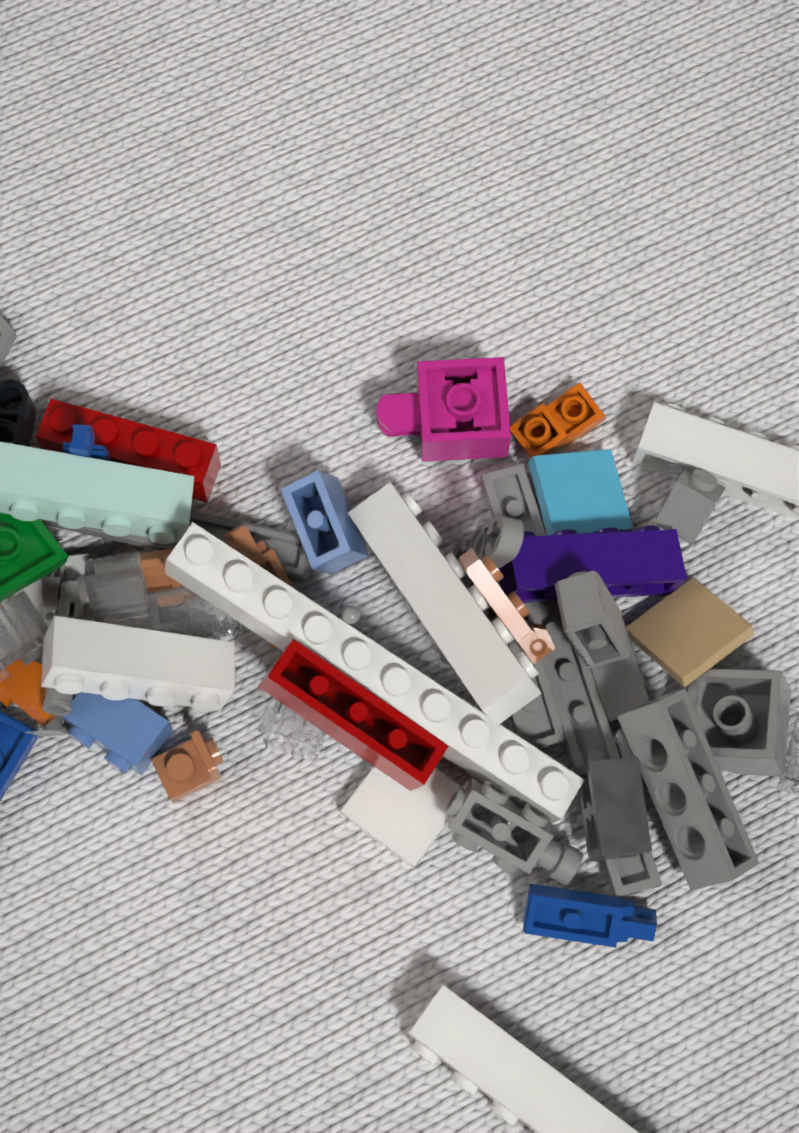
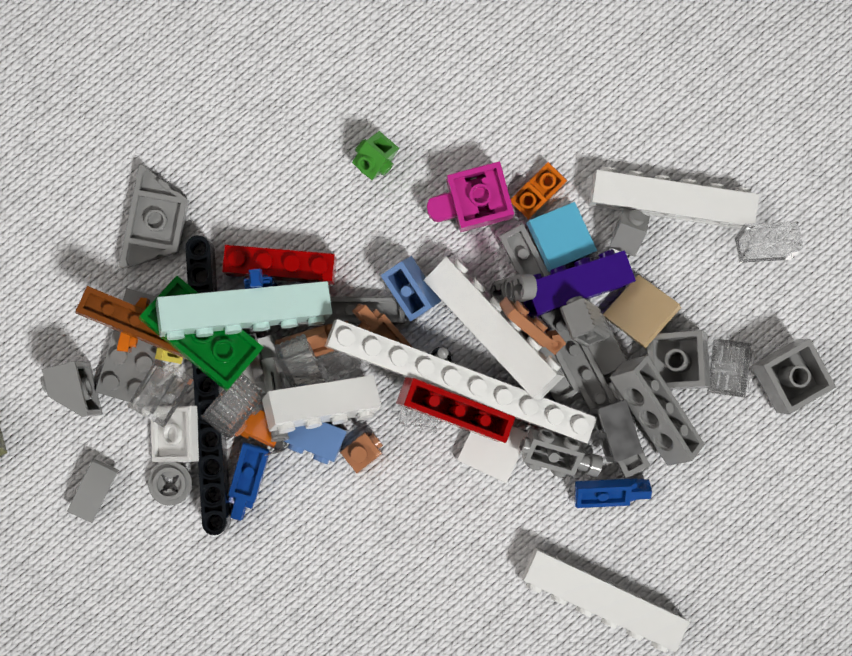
camera: 10 degrees left, 15 degrees up
(314, 320) = (375, 155): none -> bright green brick

